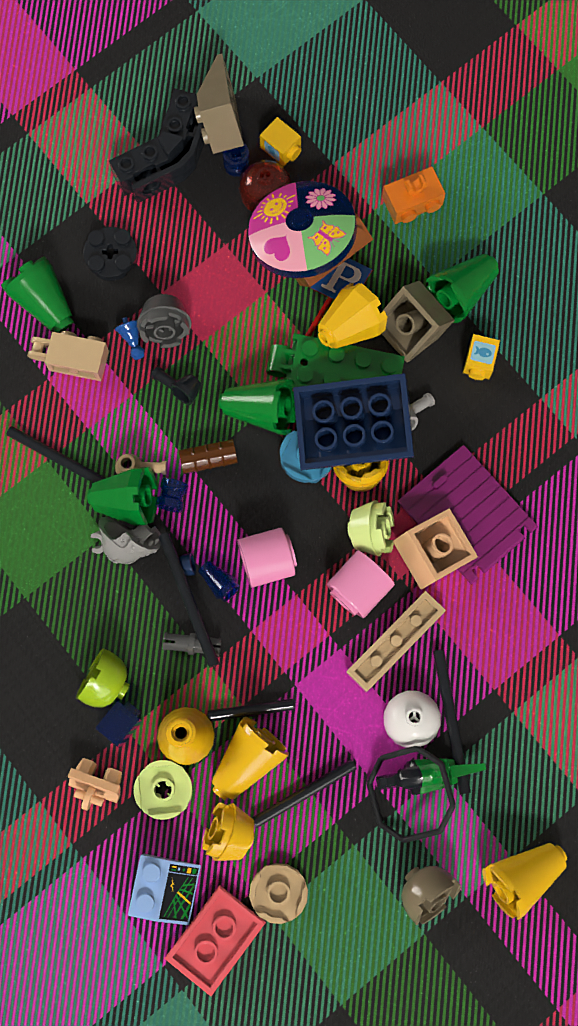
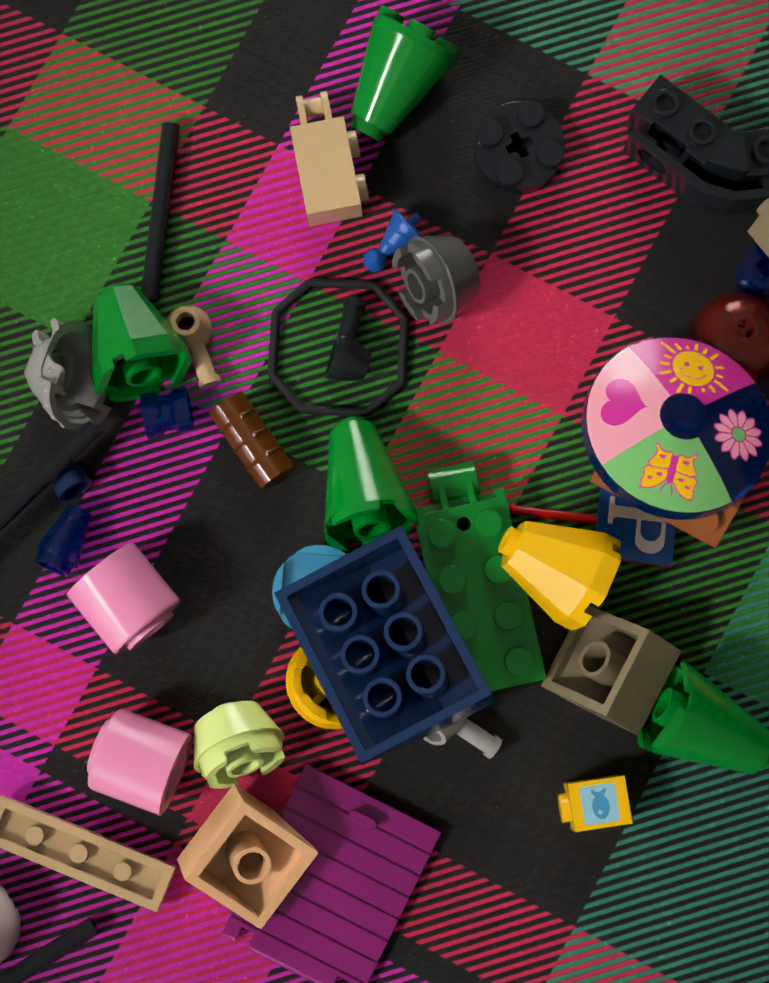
camera: 70 degrees right, 5 degrees up
(193, 359) = (332, 410): none -> black piece

